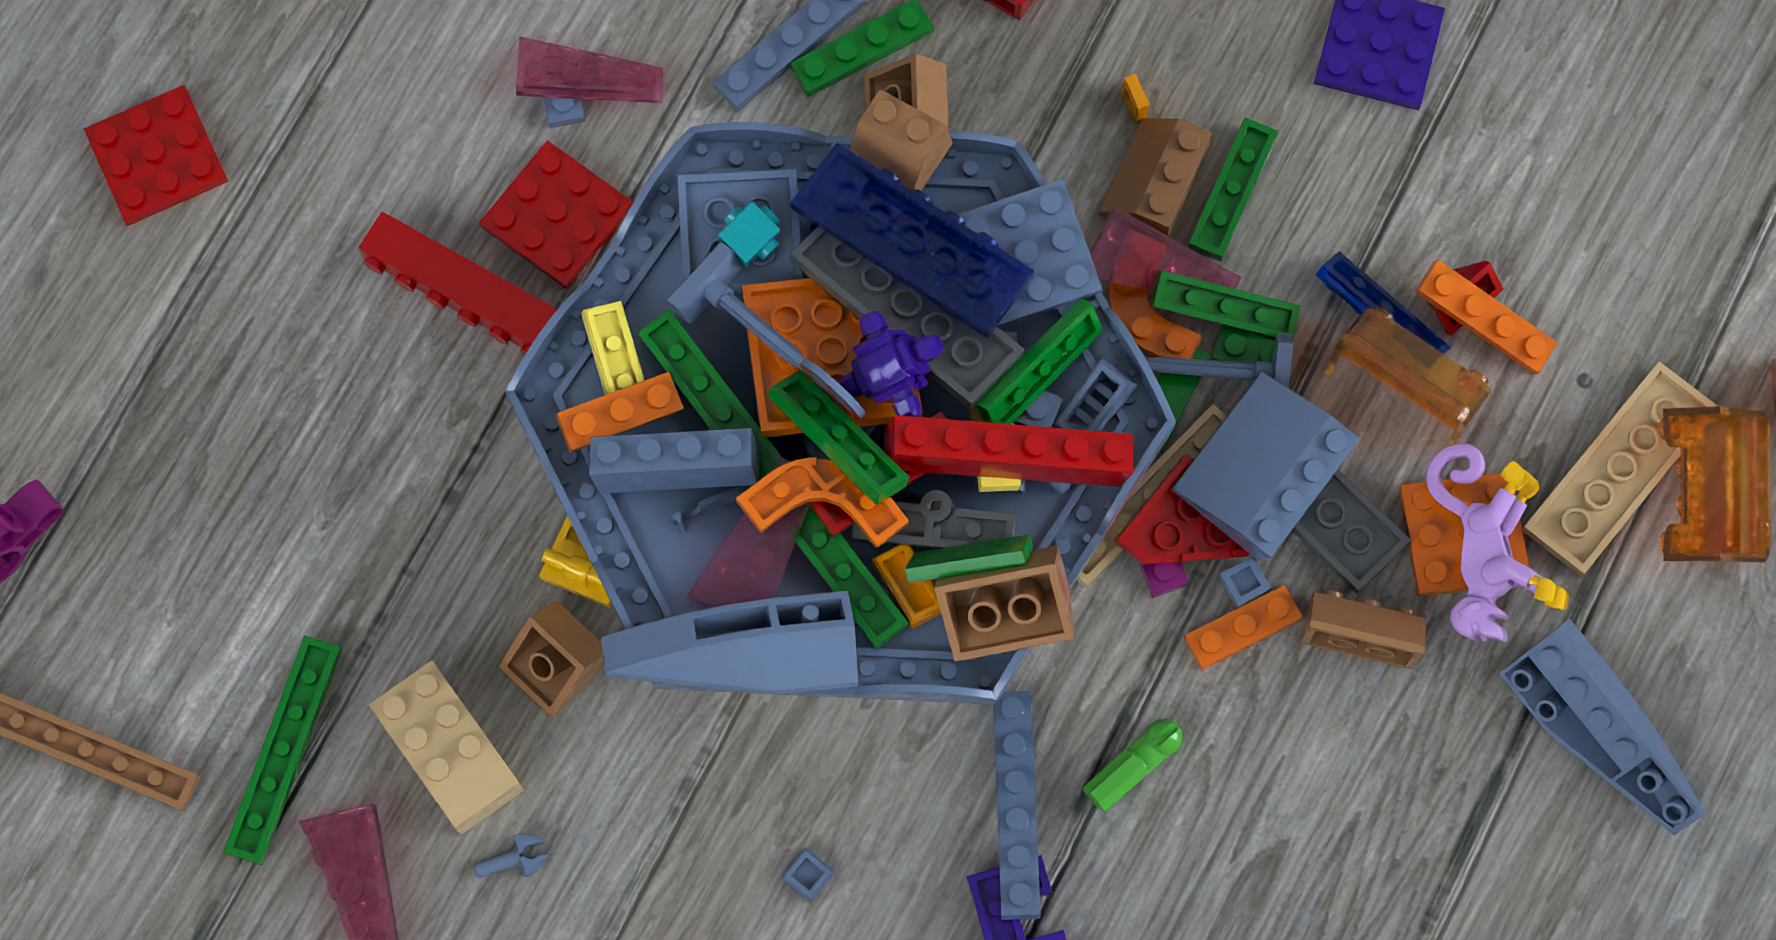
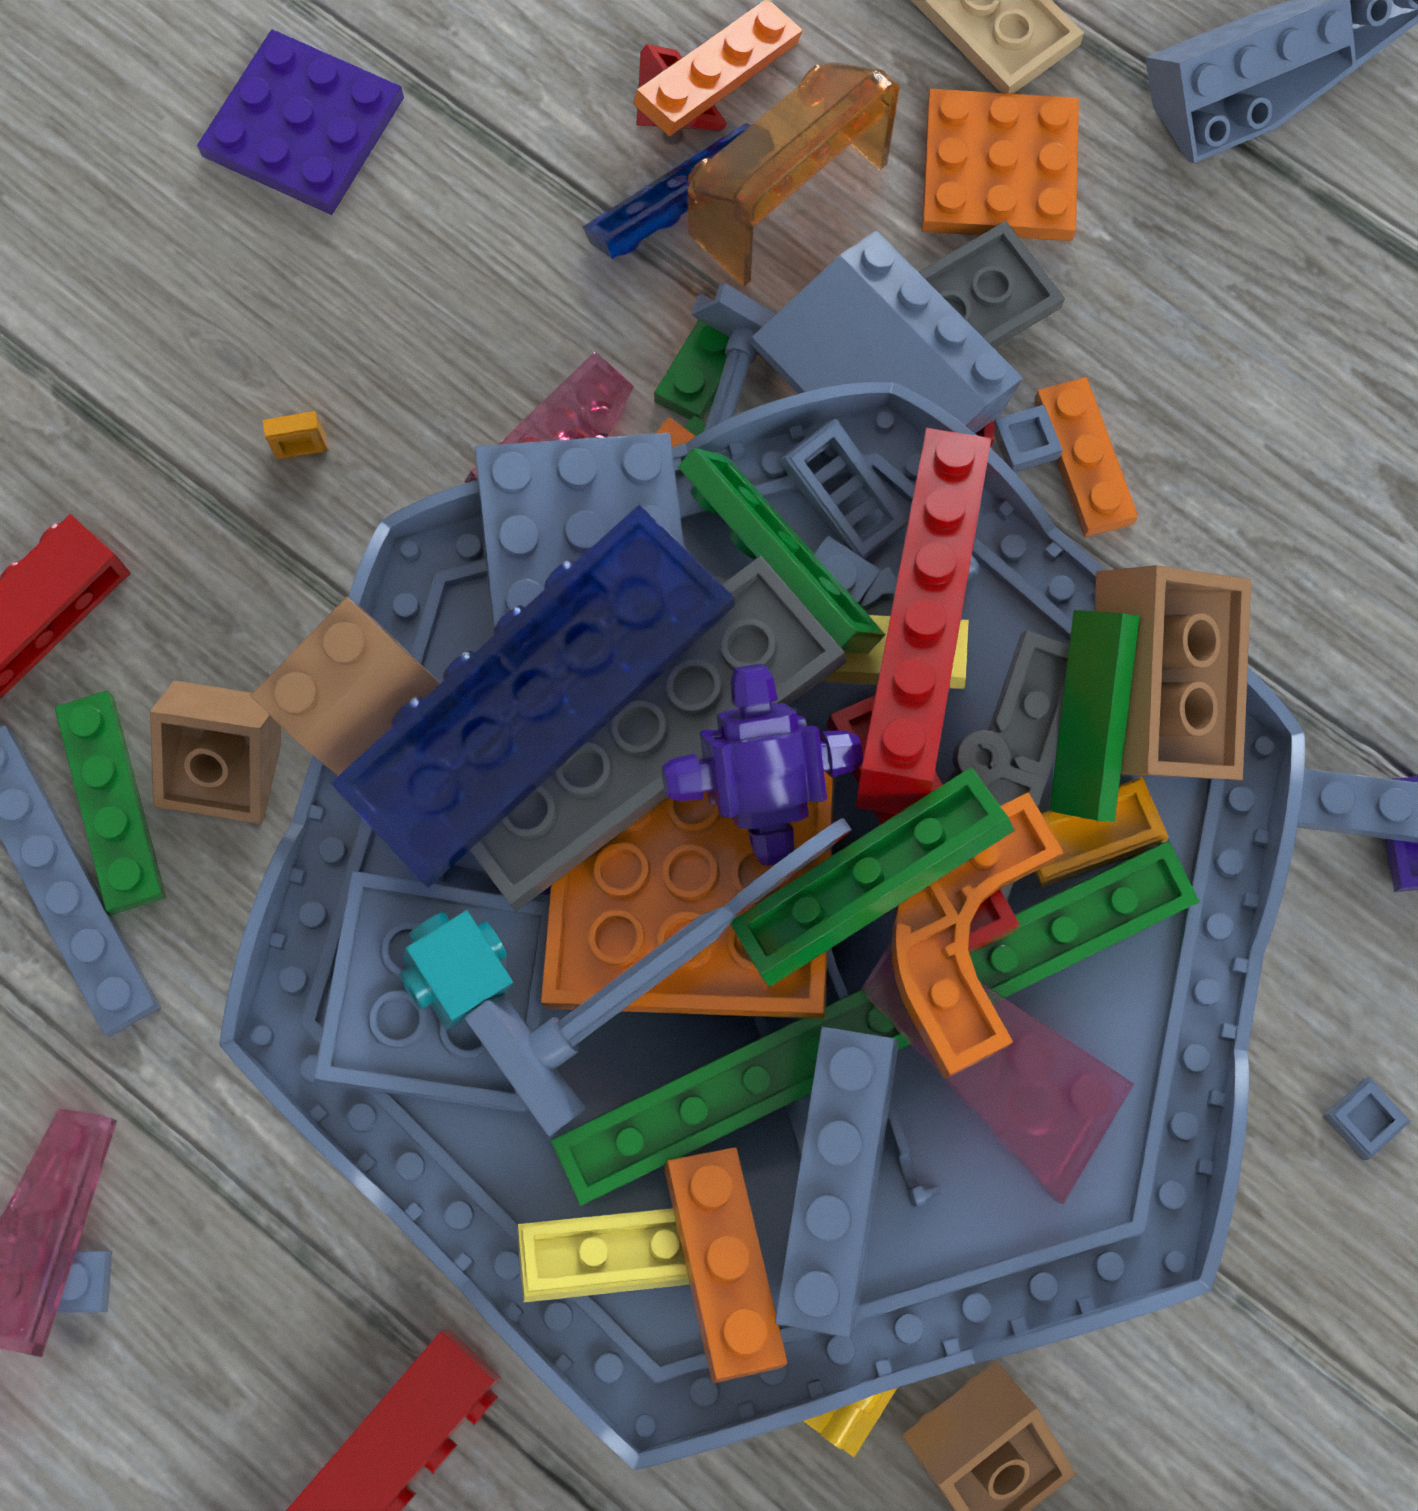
camera: 80 degrees left, 0 degrees up
(556, 214) = (256, 1326): red plate -> none
(744, 646) = (1196, 1124): sand blue wedge -> none
(1134, 763) = (1274, 643): bright green piece -> none
(1158, 171) = (411, 423): medium nougat slope -> none
(1223, 305) = (638, 367): green plate -> none
(1232, 189) = (462, 339): green plate -> none
(1364, 629) = (1120, 297): medium nougat slope -> none
(1486, 551) = (1049, 122): lavender animal -> none

